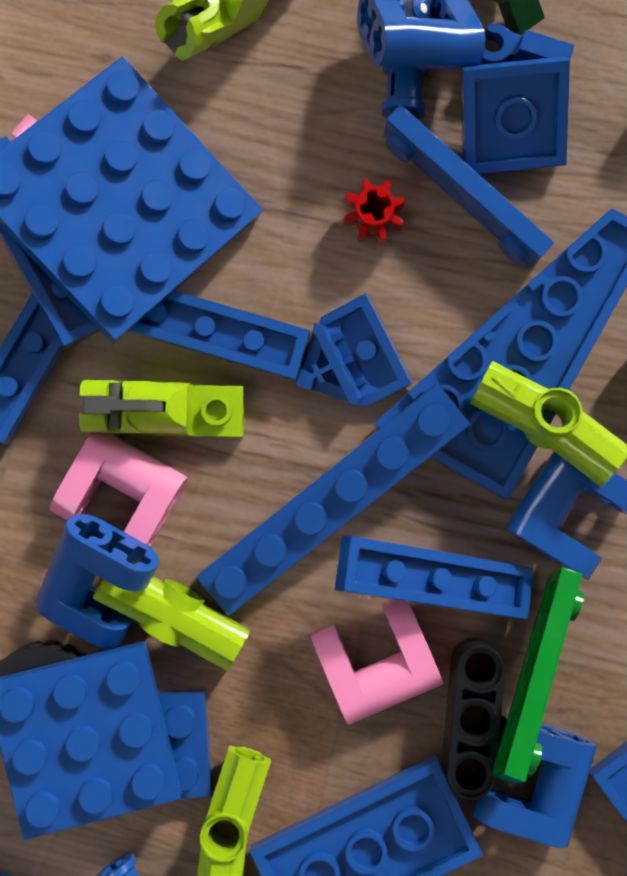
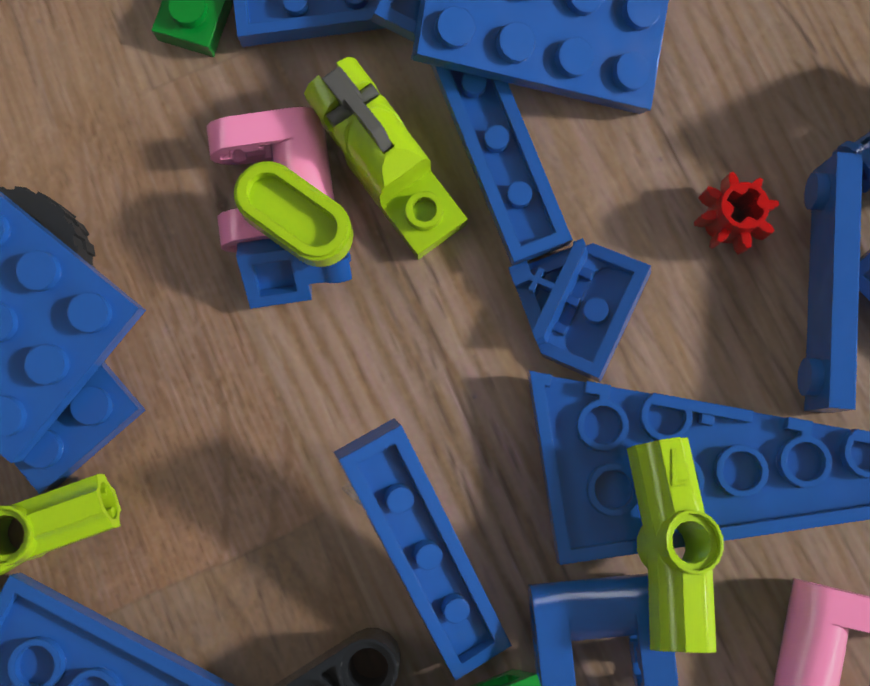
camera: 50 degrees right, 5 degrees down
(87, 550) = (162, 190): blue connector -> none
(157, 498) = (293, 214): none -> lime tile
(178, 618) = (193, 317): lime piece -> none
(187, 530) = (278, 277): none -> blue plate
(333, 499) = (428, 388): blue plate -> none
(385, 681) = (280, 580): bright pink connector -> none

